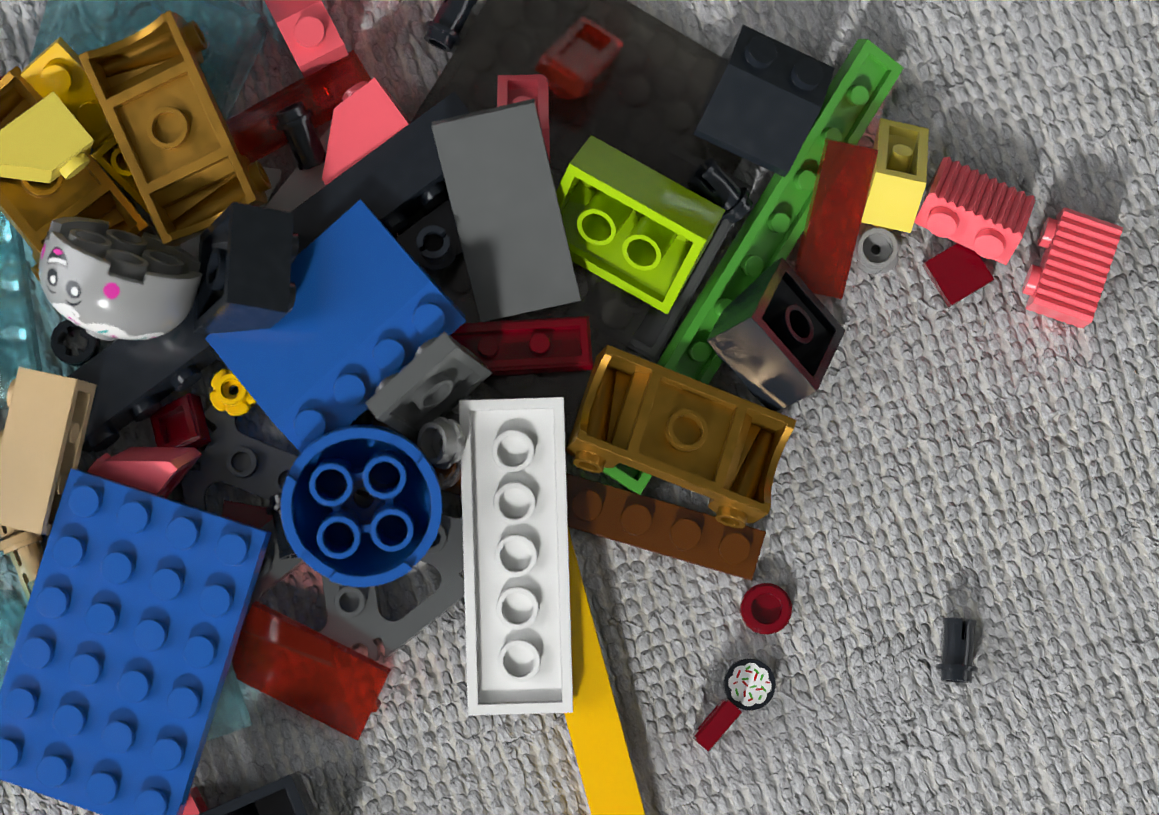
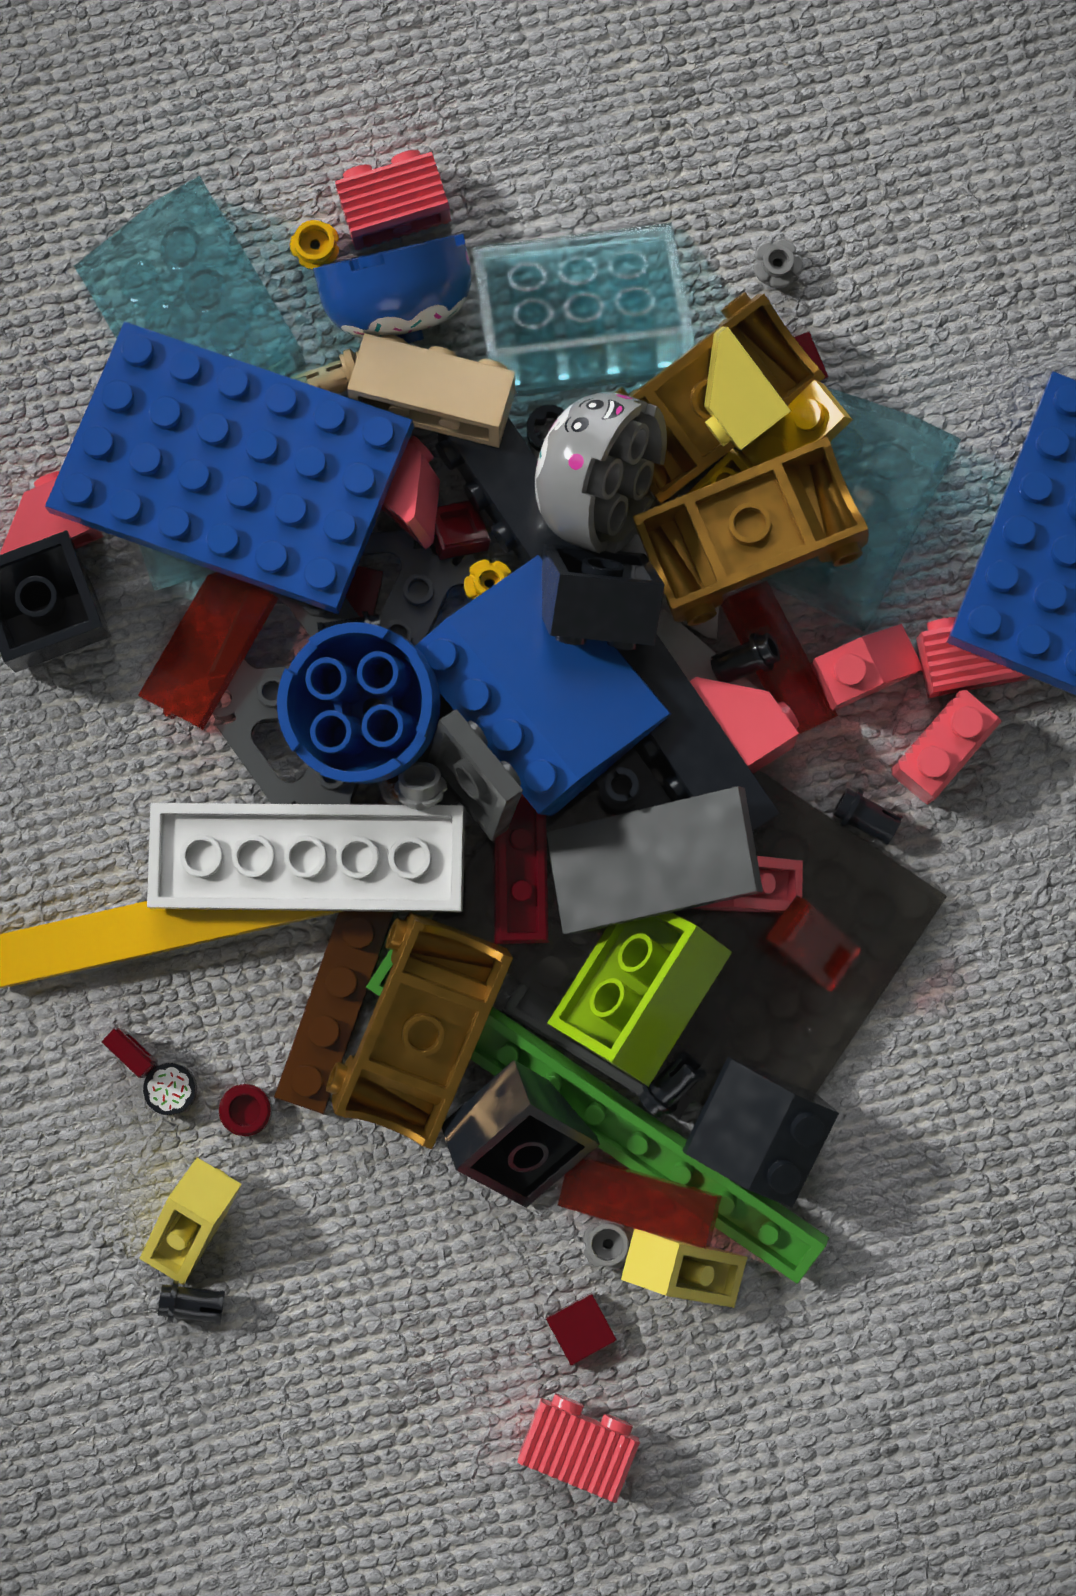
camera: 90 degrees right, 0 degrees up
(878, 655) = (189, 1220): none -> light yellow slope
(975, 211) = (640, 1348): coral brick -> none

